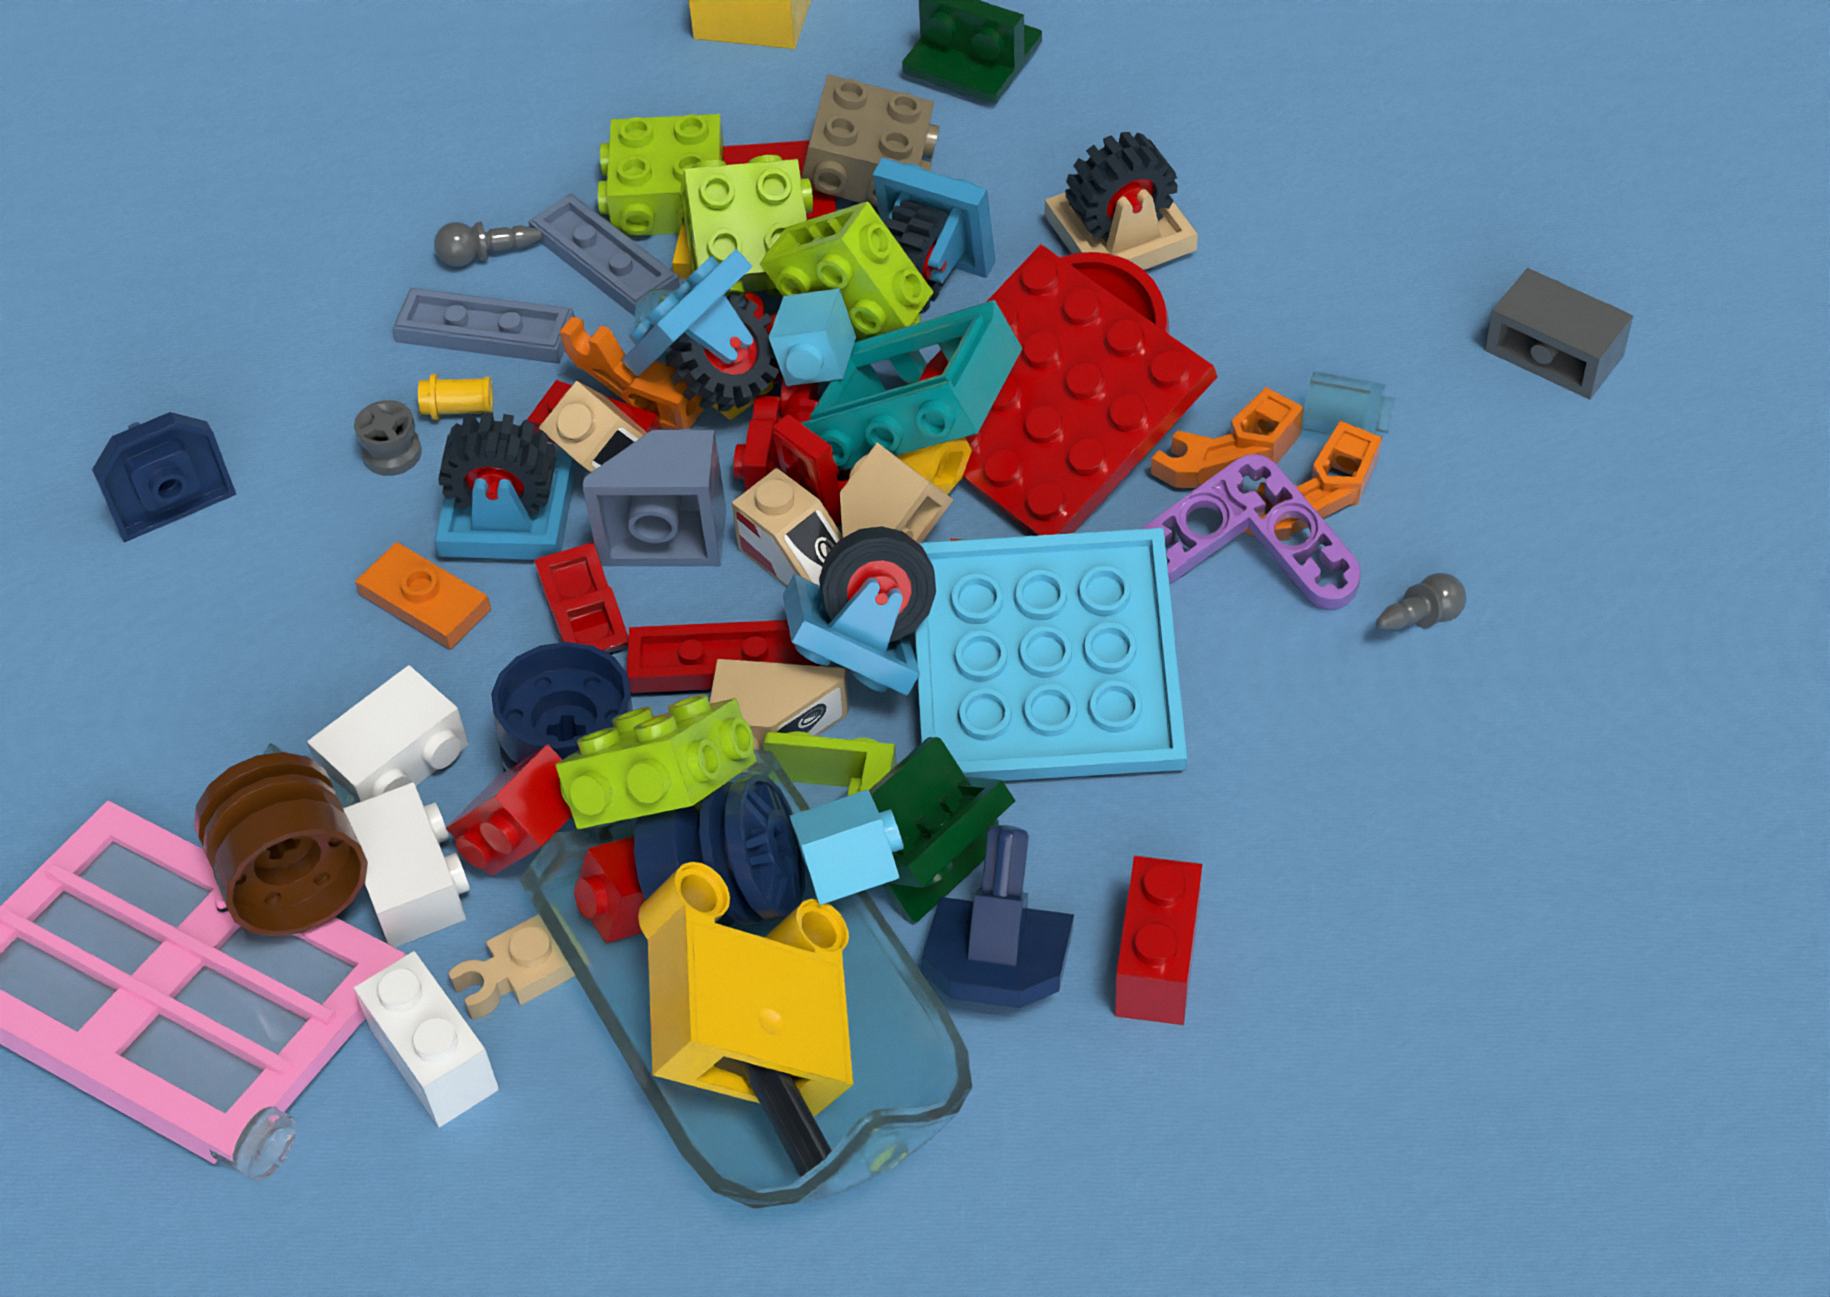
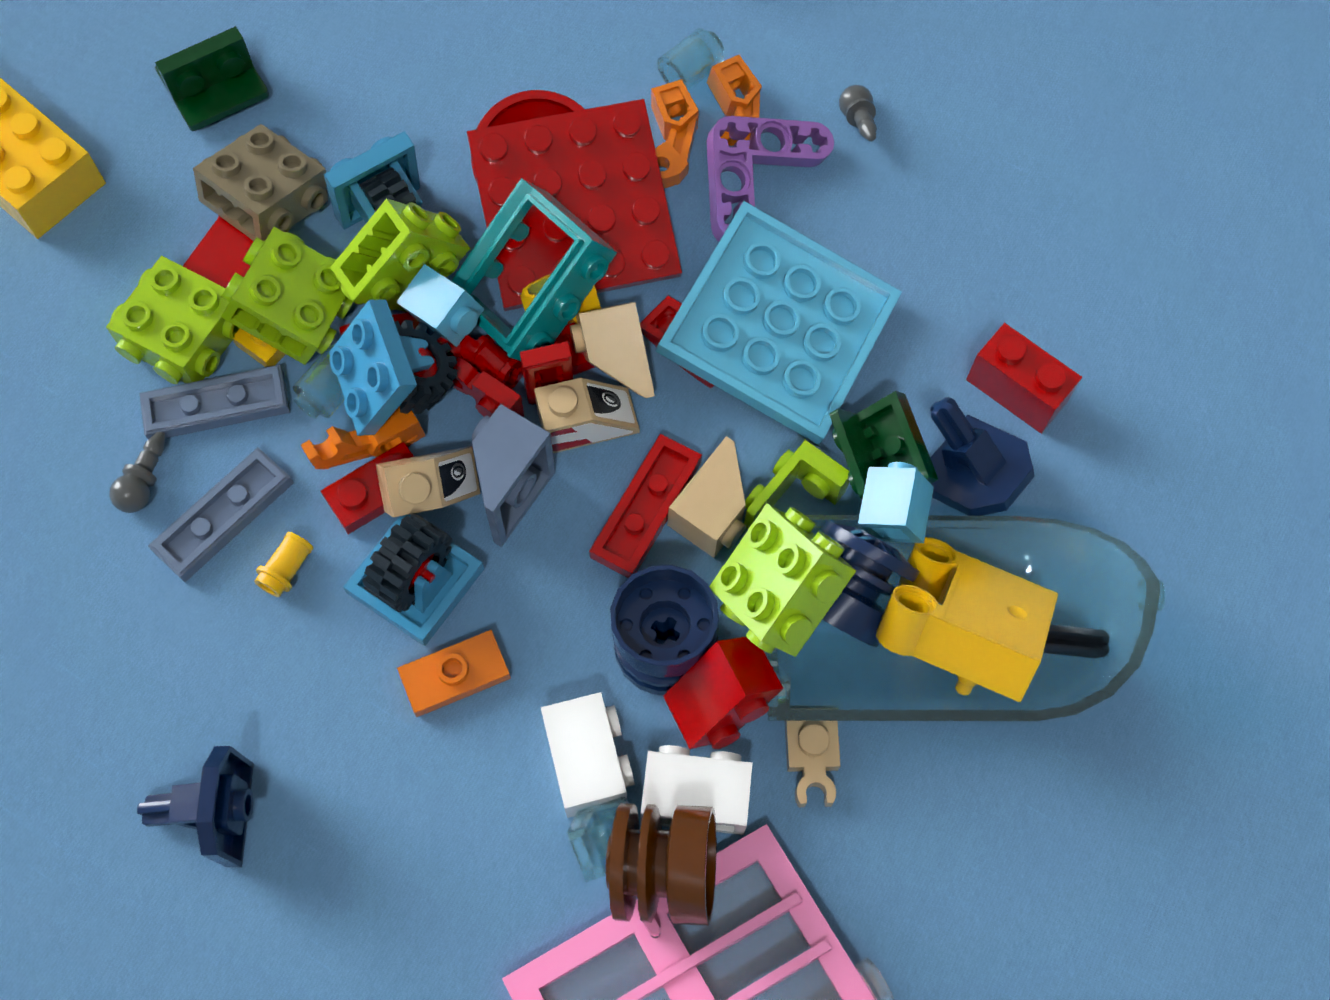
camera: 65 degrees left, 15 degrees up
(388, 437) = (283, 620): dark grey wheel -> none
(426, 1038) = (854, 839): white brick -> none
(581, 598) = (537, 574): red slope -> none
(610, 890) = (822, 661): red brick -> none
(868, 601) = (702, 399): plate -> none
(1123, 205) = (444, 80): plate -> none

